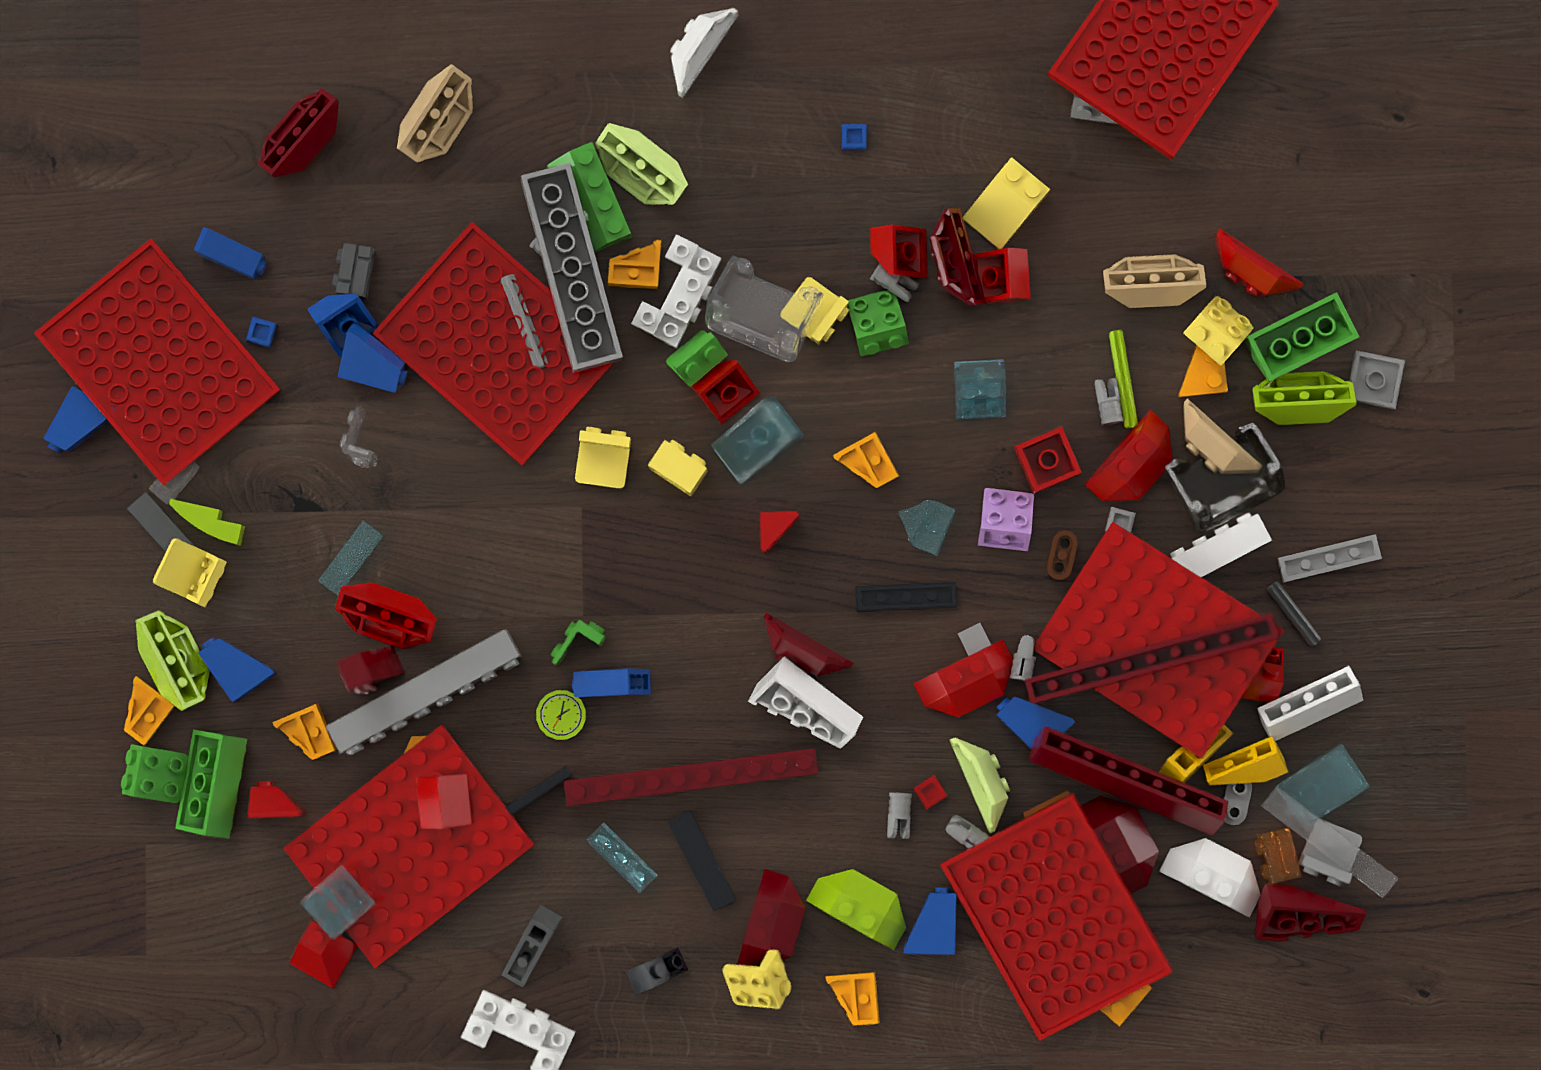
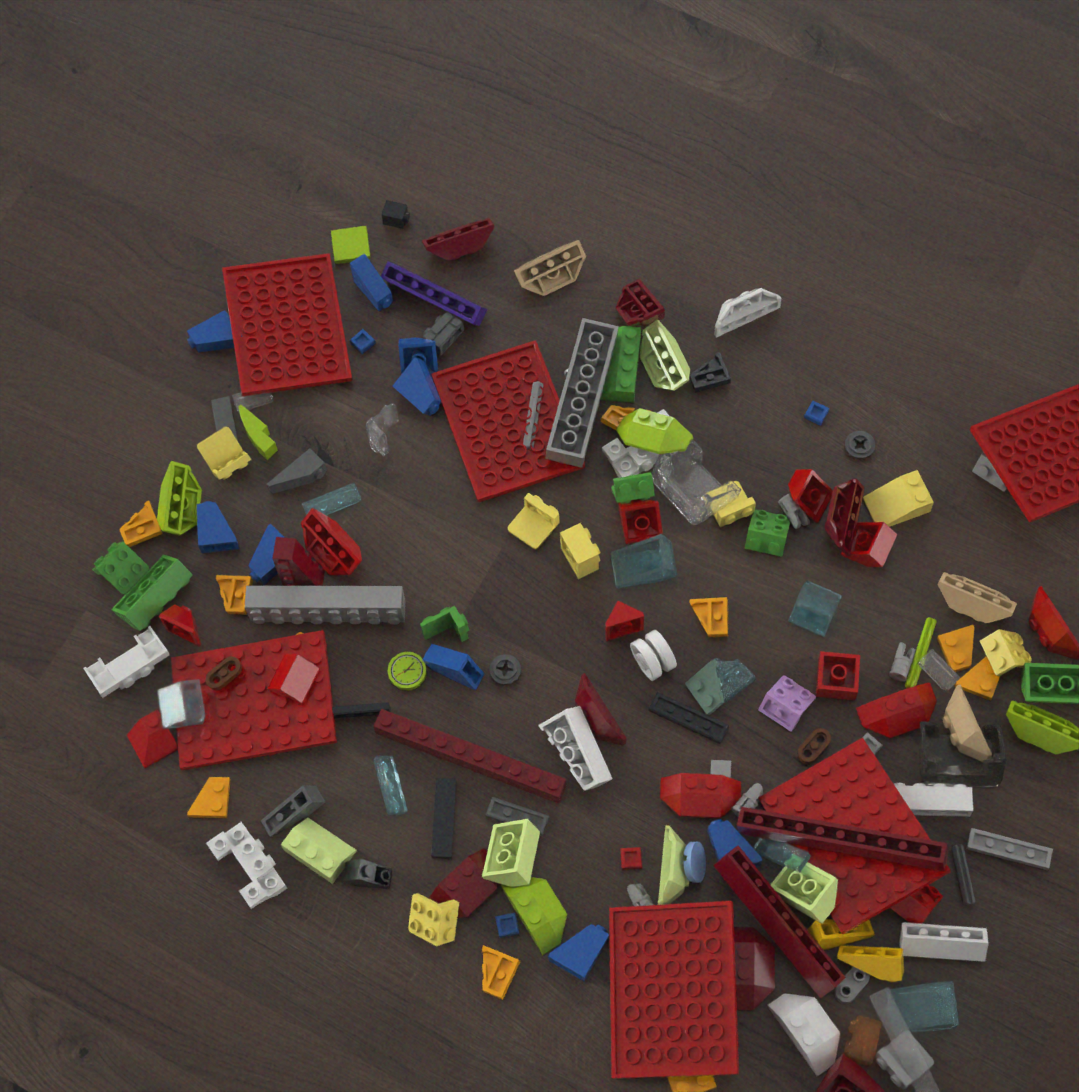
camera: 35 degrees right, 20 degrees down
(167, 209) = (350, 244): none -> lime tile
(200, 140) = (395, 214): none -> black brick
(244, 886) = (129, 666): none -> white bracket
(294, 540) = (299, 473): none -> dark grey slope
(313, 226) = (433, 293): none -> dark purple brick
(319, 665) = (262, 564): none -> blue slope
(360, 837) = (223, 672): none -> reddish brown plate
(432, 981) = (212, 799): none -> light orange wing
(571, 113) = (638, 305): none -> dark red wedge
(586, 971) = (318, 849): none -> yellowish green slope
(676, 642) = (499, 663): none -> dark grey gear
(683, 278) = (653, 432): none -> lime wedge
(704, 154) = (710, 375): none -> black wing
(780, 813) = (508, 812): none -> dark grey tile
(801, 863) = (511, 853): none -> yellowish green slope
(831, 549) = (653, 655): none -> white wheel
(838, 939) = (507, 925): none -> blue tile
(899, 809) = (602, 857): light grey hinge -> none
(909, 553) = (707, 688): none -> sand green wing
(936, 147) = (860, 437): none -> dark grey gear
(1005, 761) = (696, 862): none -> light blue tile
(1093, 703) = (782, 854): none -> clear light blue tile
(1139, 730) = (808, 891): none -> yellowish green slope
(1154, 390) = (938, 670): none -> clear tile
(1161, 349) = (958, 647): none -> light orange wing

